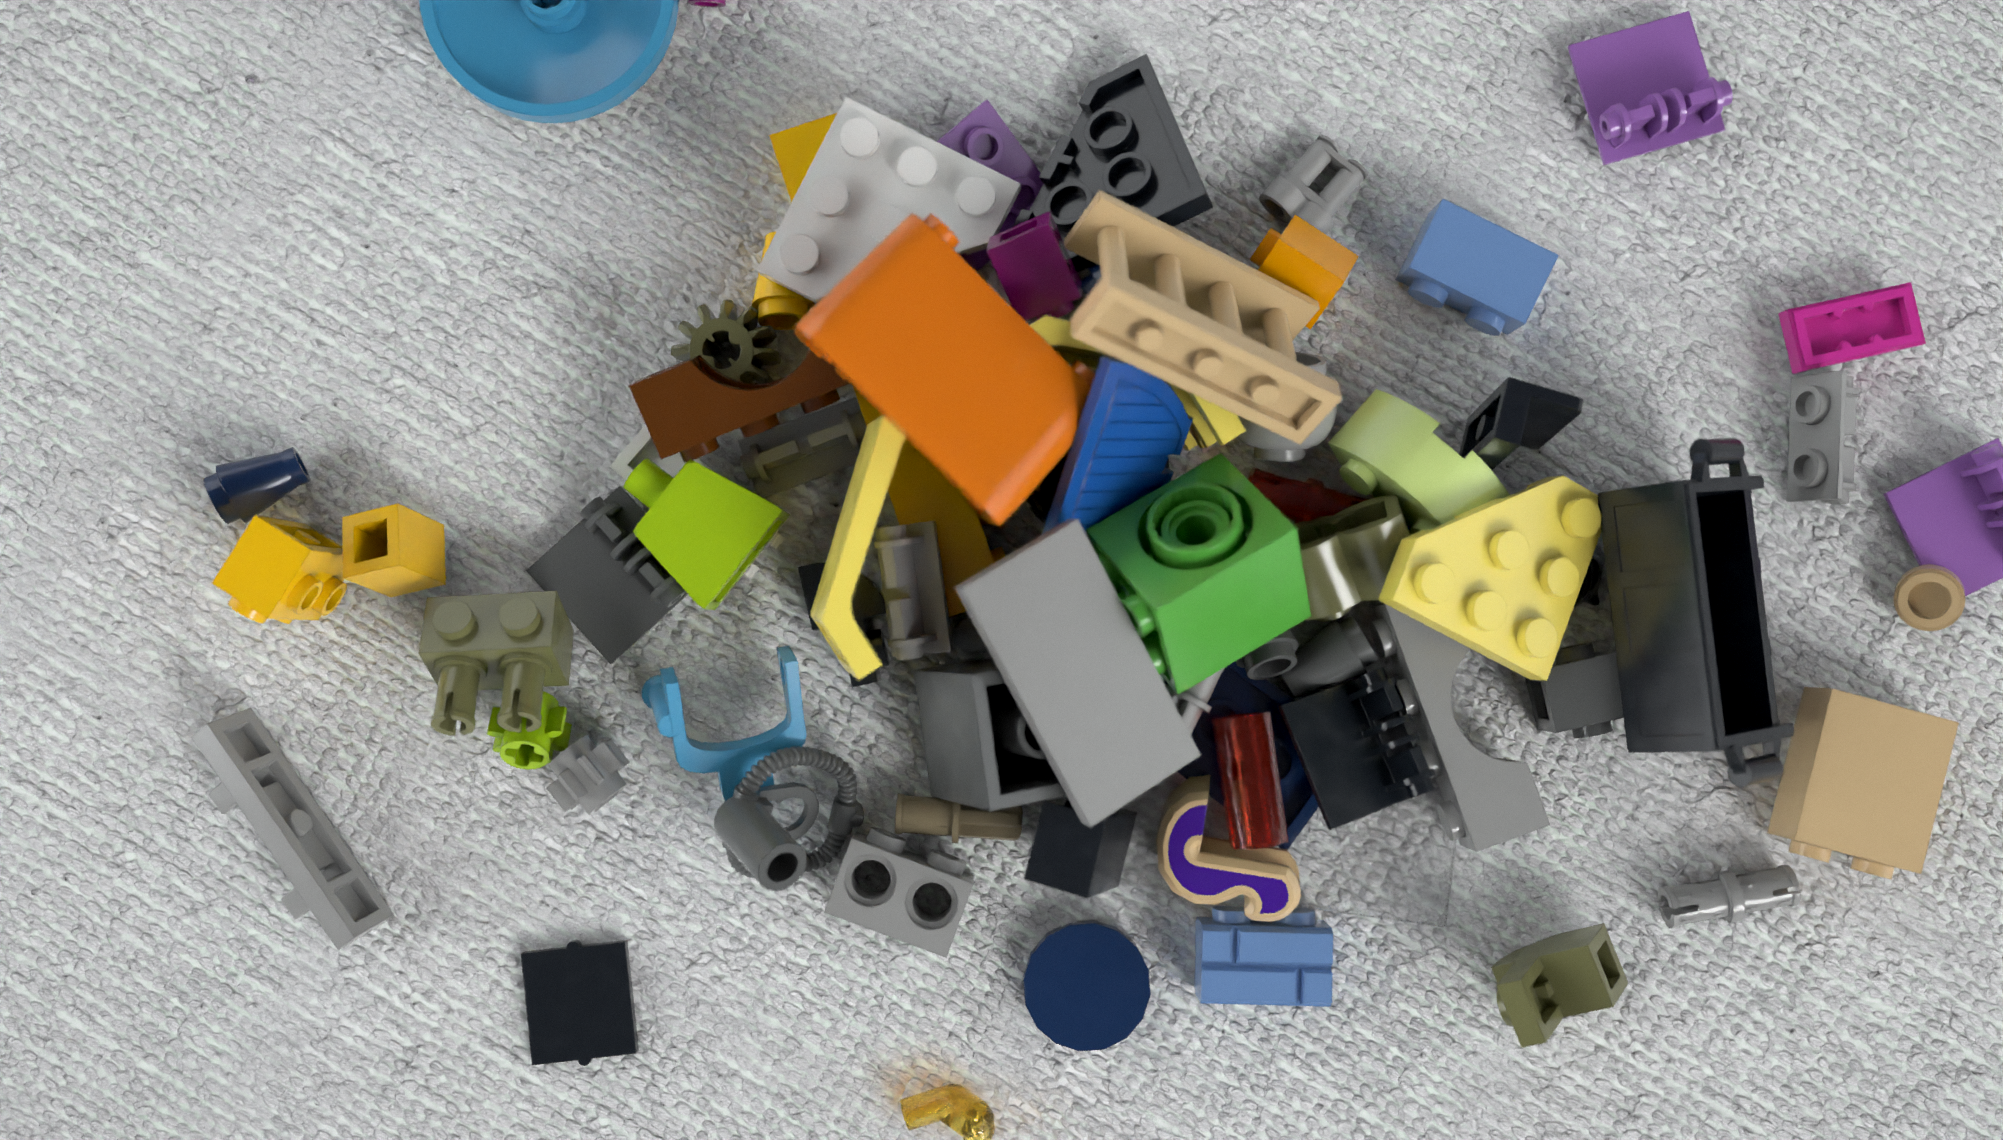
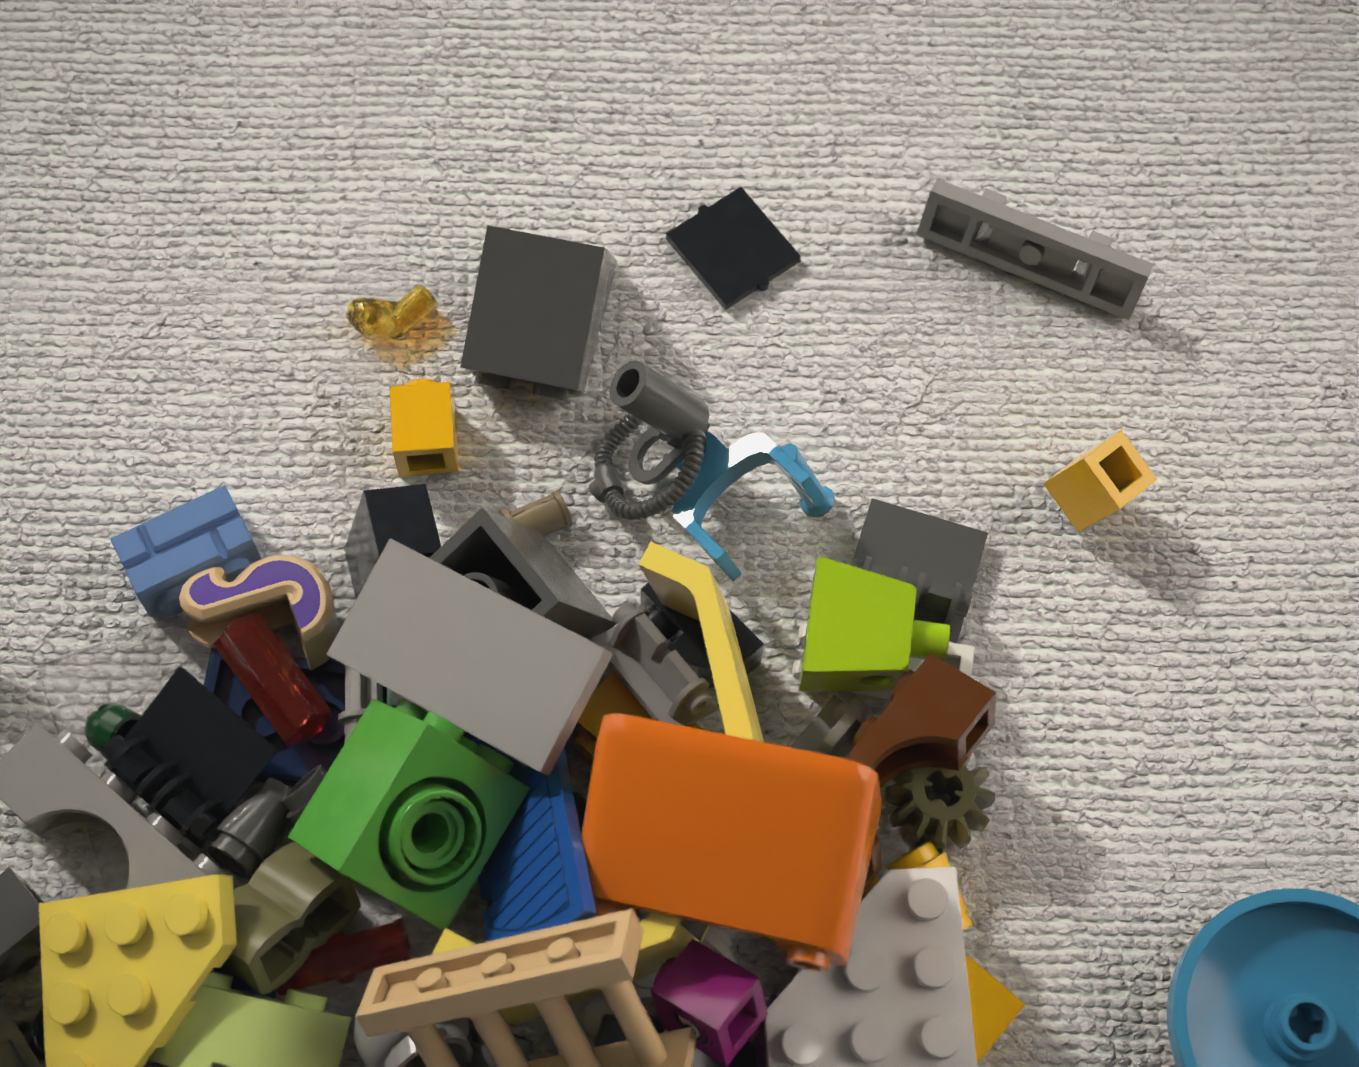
camera: 145 degrees right, 20 degrees down
(254, 484) = (1247, 479): dark blue cone -> none
(283, 572) = (1172, 415): yellow brick -> none
(495, 644) = (971, 457): olive brick -> none
(536, 747) = (901, 410): lime gear -> none
(587, 774) = (832, 401): light grey gear -> none
(812, 1028) = (537, 311): none -> dark grey slope
(895, 908) = (523, 431): light grey brick -> none
(983, 968) = (423, 428): none -> yellow brick
(1086, 985) = (328, 460): dark blue tile -> none
(1408, 821) = (108, 723): none -> dark green hinge

